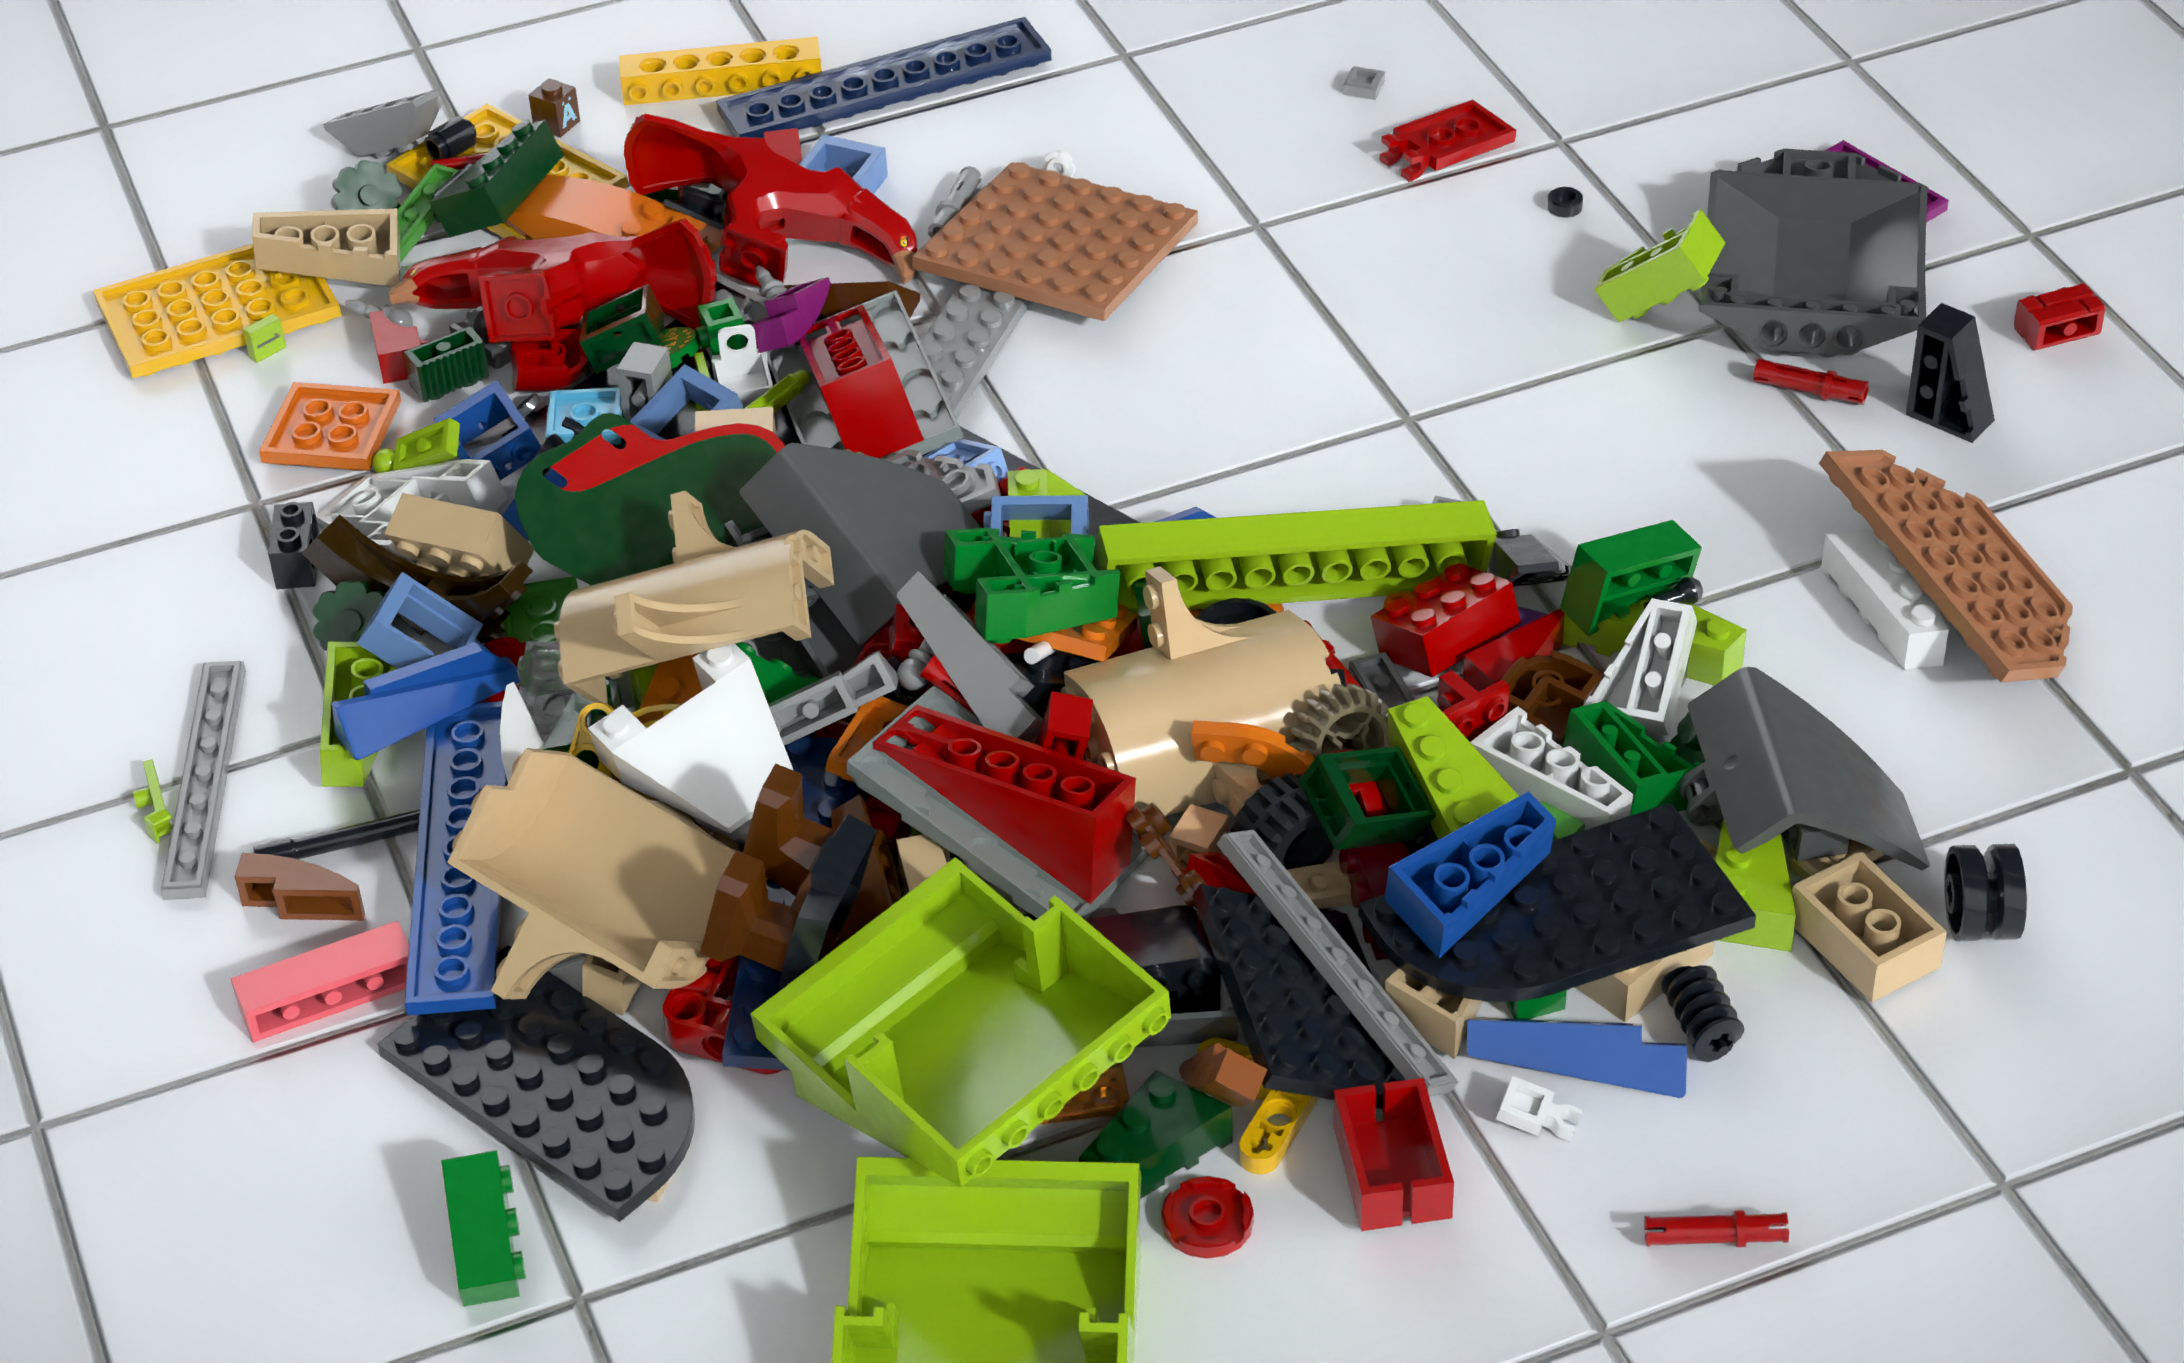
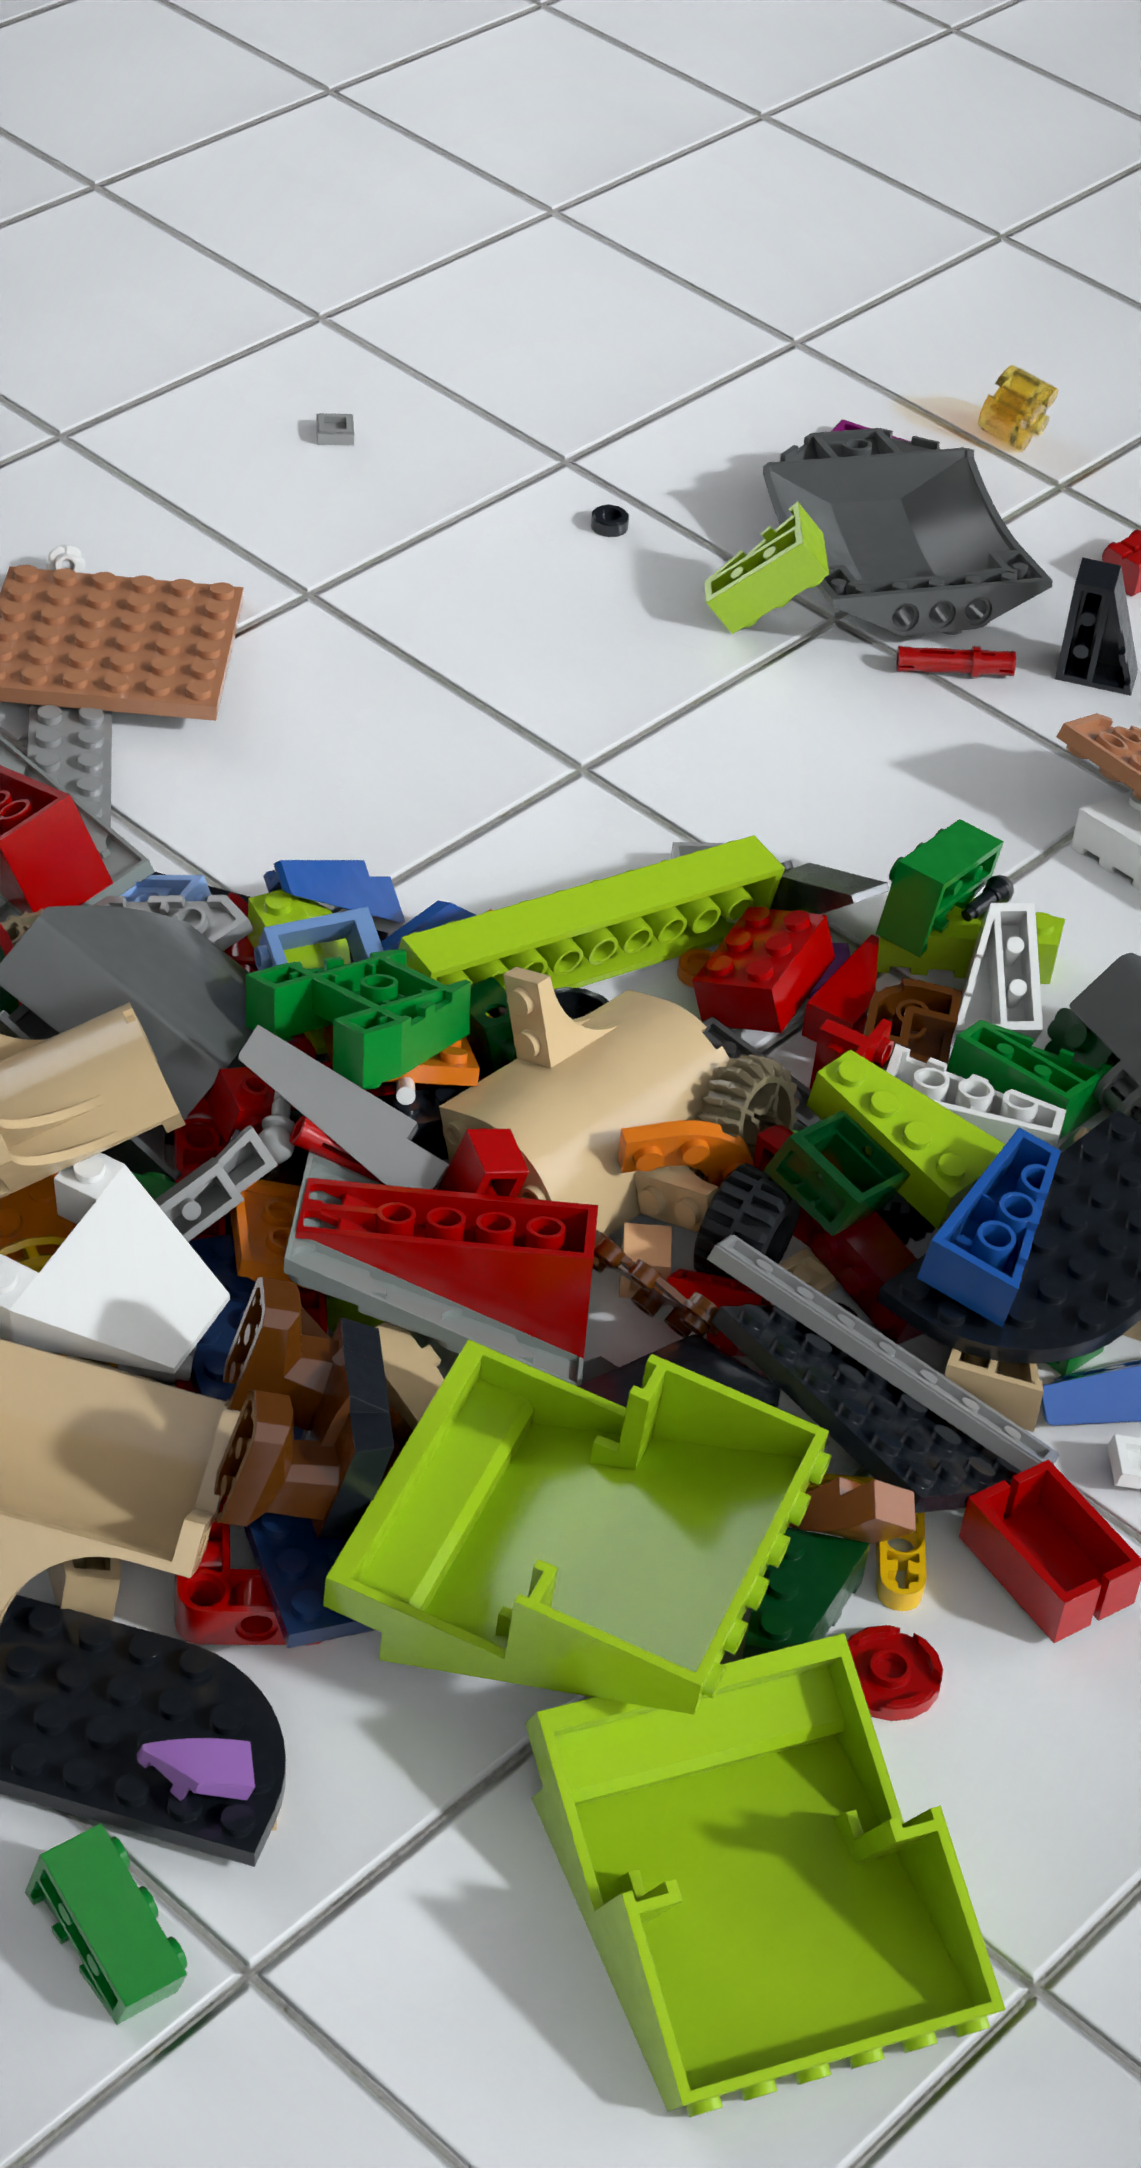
camera: 30 degrees left, 0 degrees up
(606, 1133) = (203, 1766): none -> medium lavender slope
(1105, 476) = (337, 884): none -> blue wedge
(1445, 138) = (455, 474): red tile -> none
(2016, 153) = (1017, 407): none -> clear yellow brick

